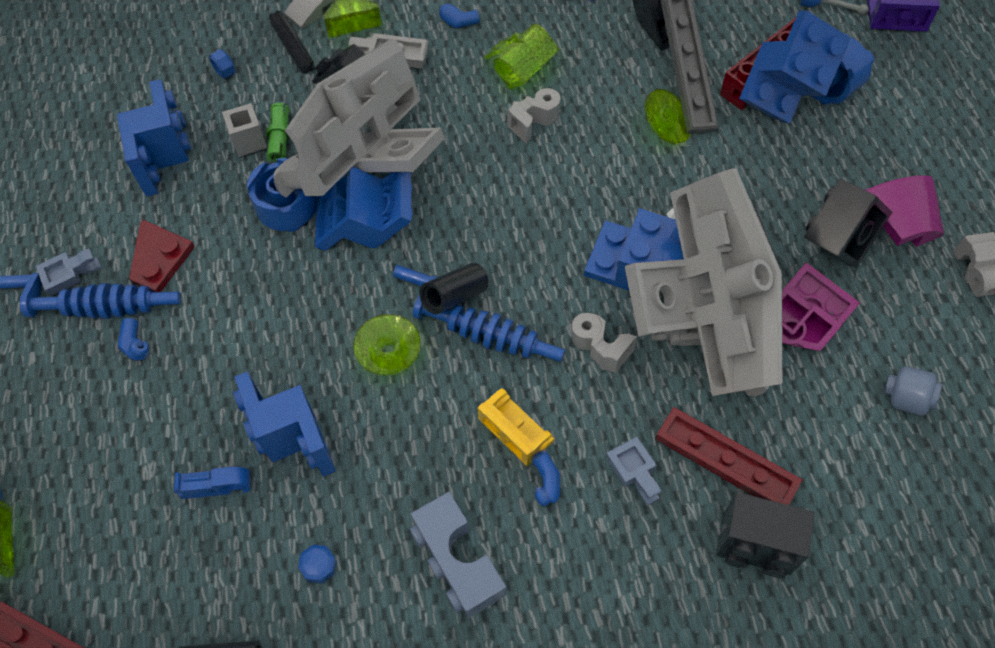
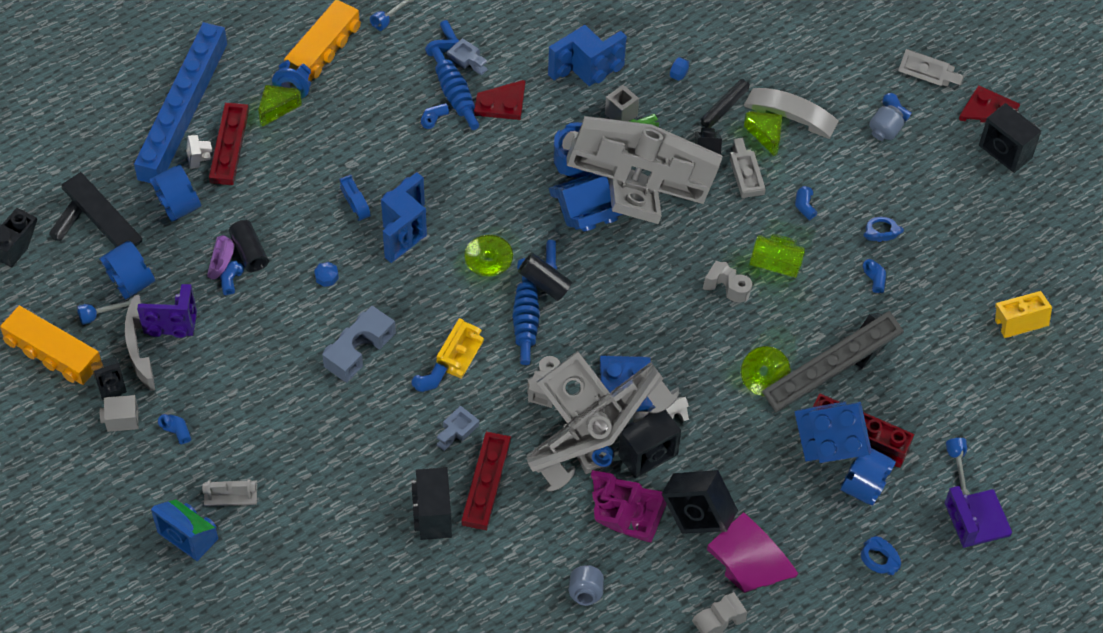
camera: 65 degrees right, 5 degrees down
(911, 96) = (878, 544): none -> blue piece

